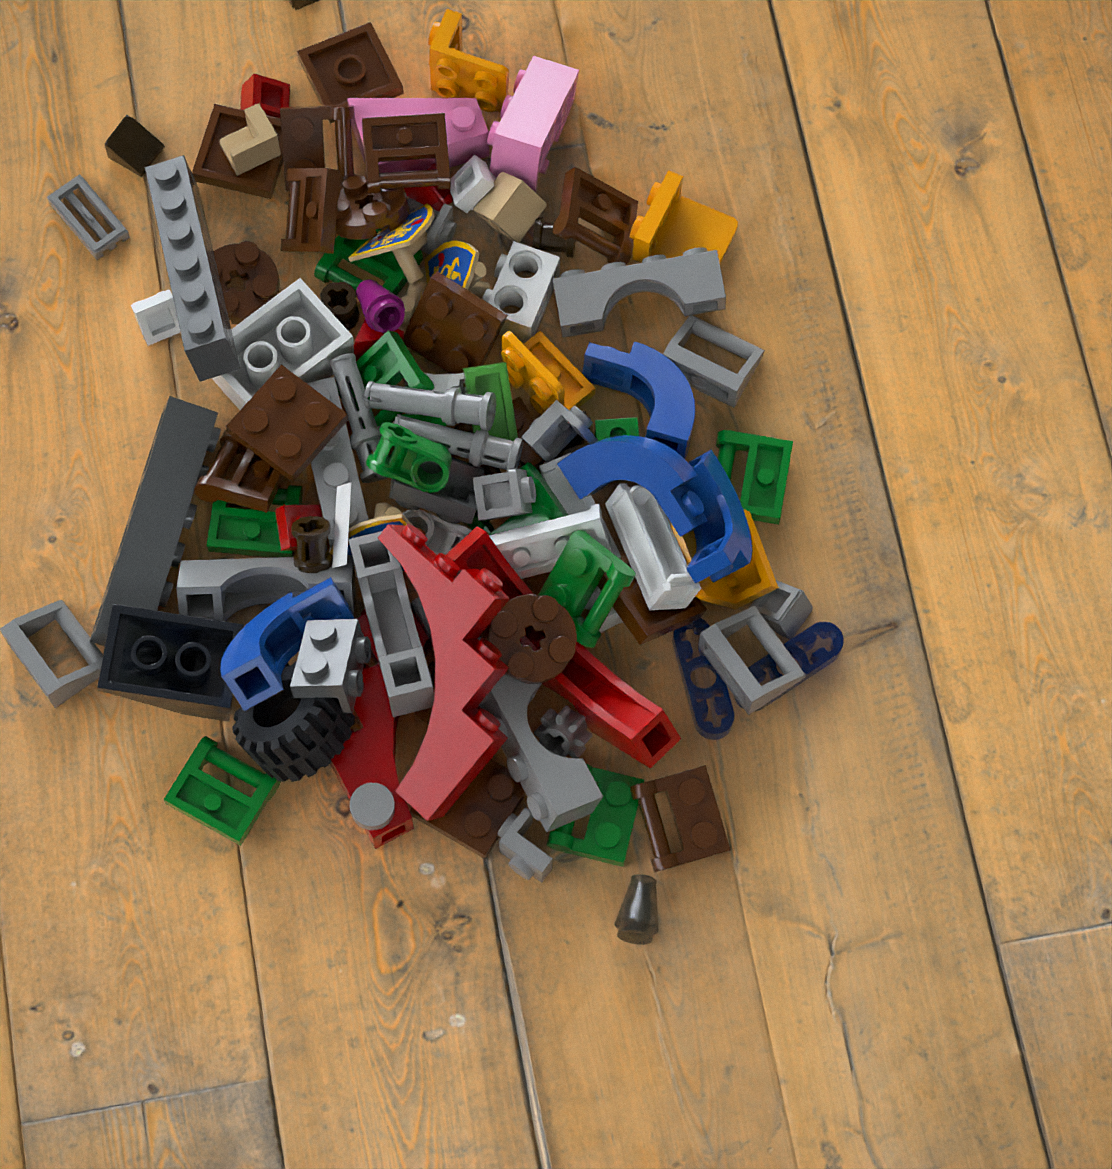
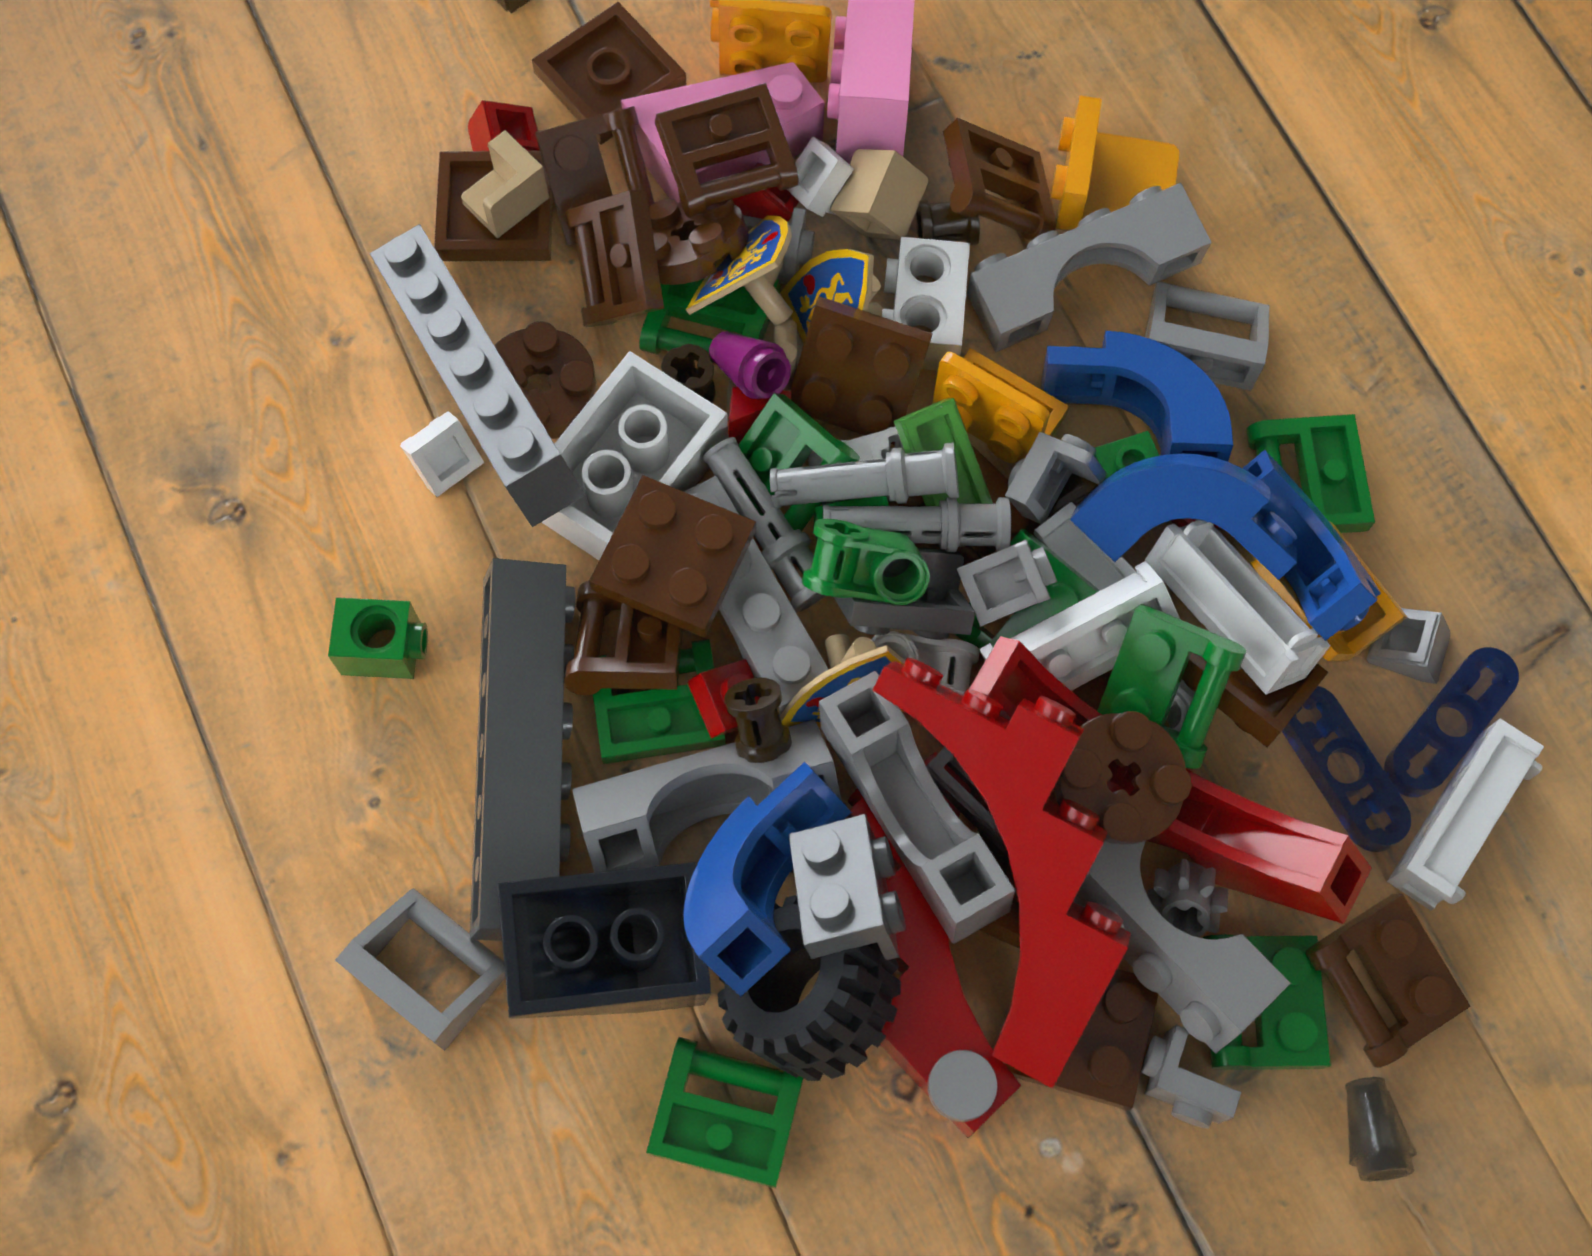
camera: 15 degrees left, 0 degrees up
(69, 419) = (359, 620): none -> green brick
(107, 241) = (340, 368): light grey tile -> none
(133, 146) = (342, 233): dark brown slope -> none
(341, 527) = (797, 682): white sticker -> none
(733, 669) = (1397, 747): light grey tile -> none
(771, 727) = (1466, 815): none -> white container

